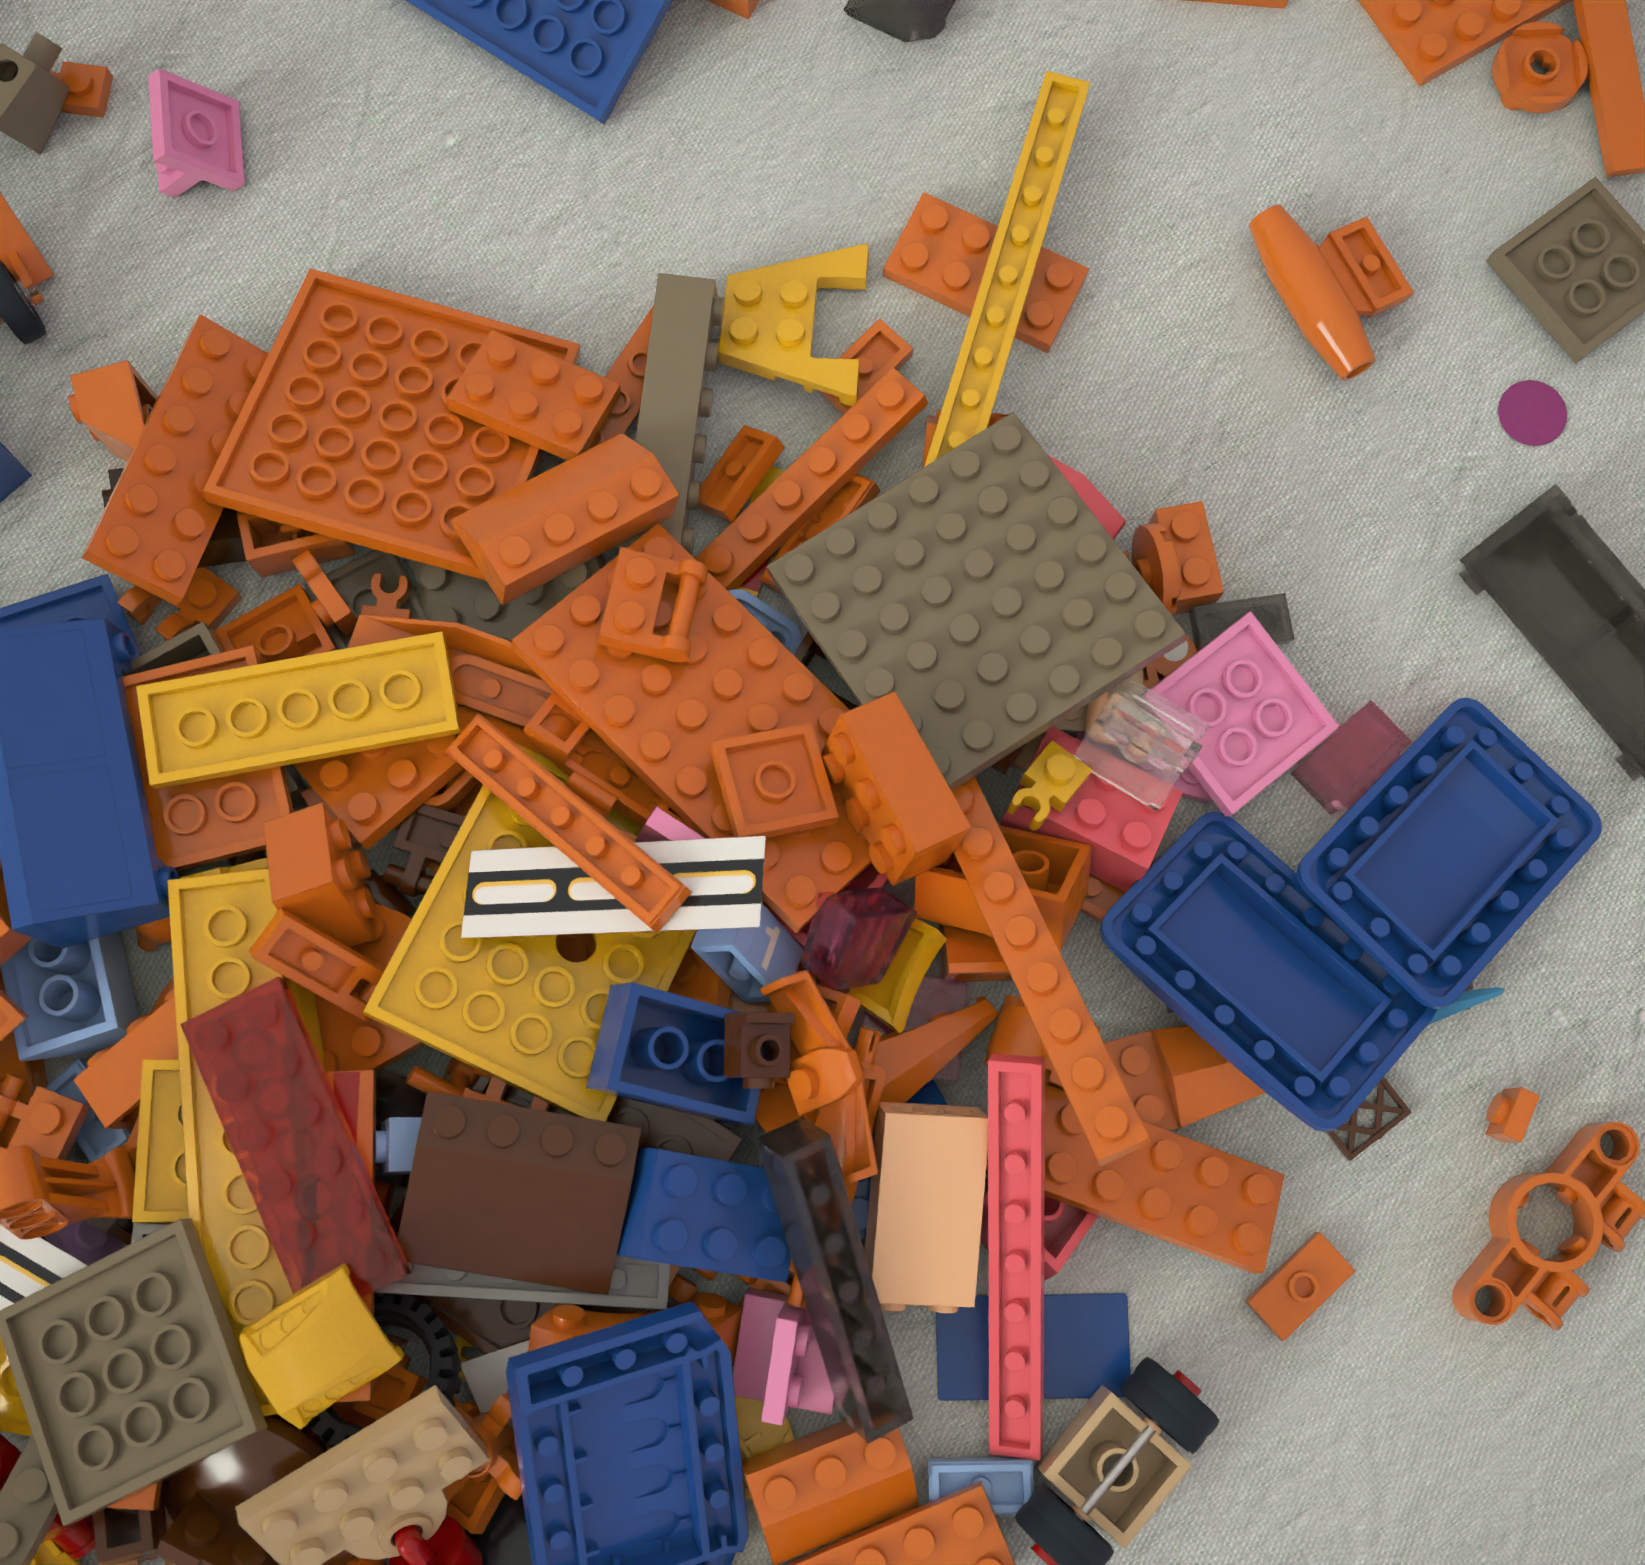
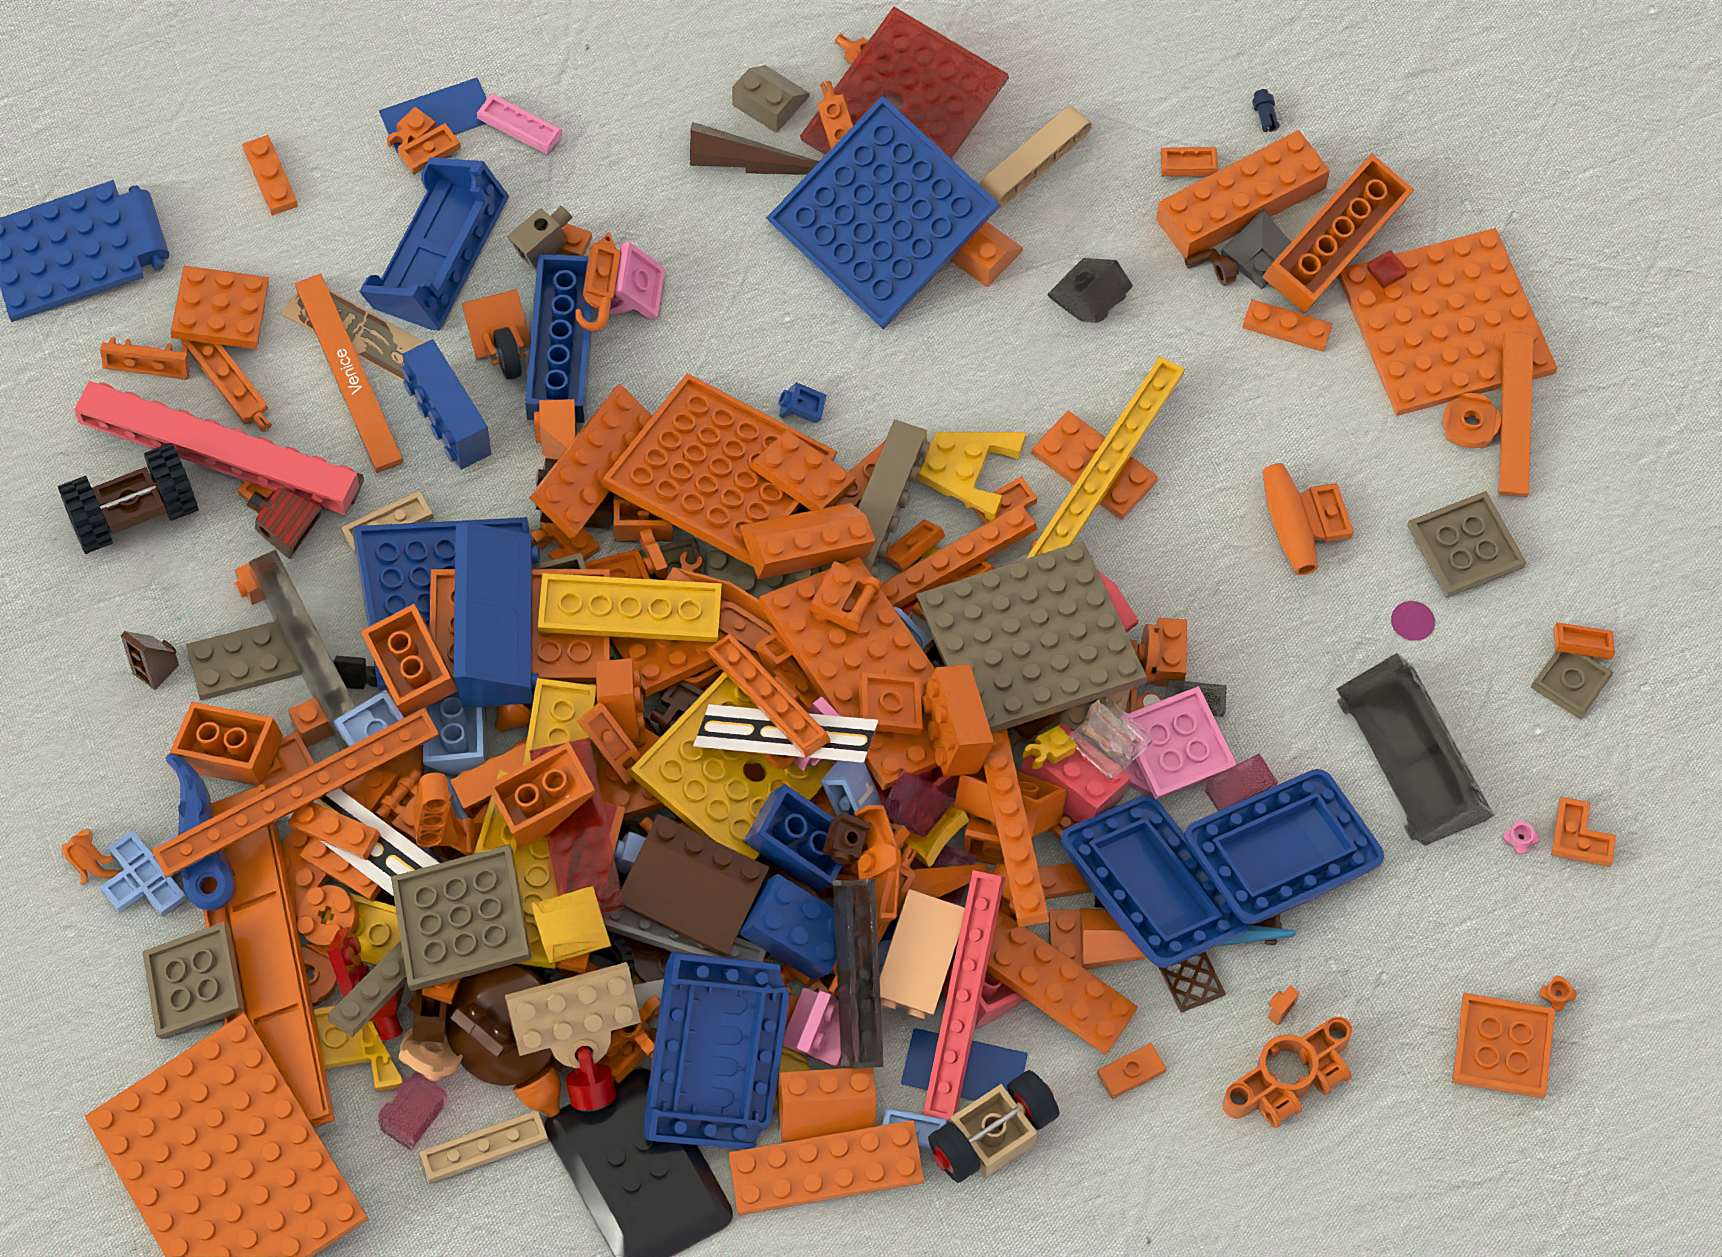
camera: 15 degrees right, 15 degrees down
(91, 246) = (558, 342): none -> blue brick
(127, 147) = (600, 281): none -> orange plate
(208, 1122) = (541, 794): none -> orange slope
(506, 275) = (802, 402): none -> blue bracket
(1107, 985) = (1062, 881): none -> orange plate

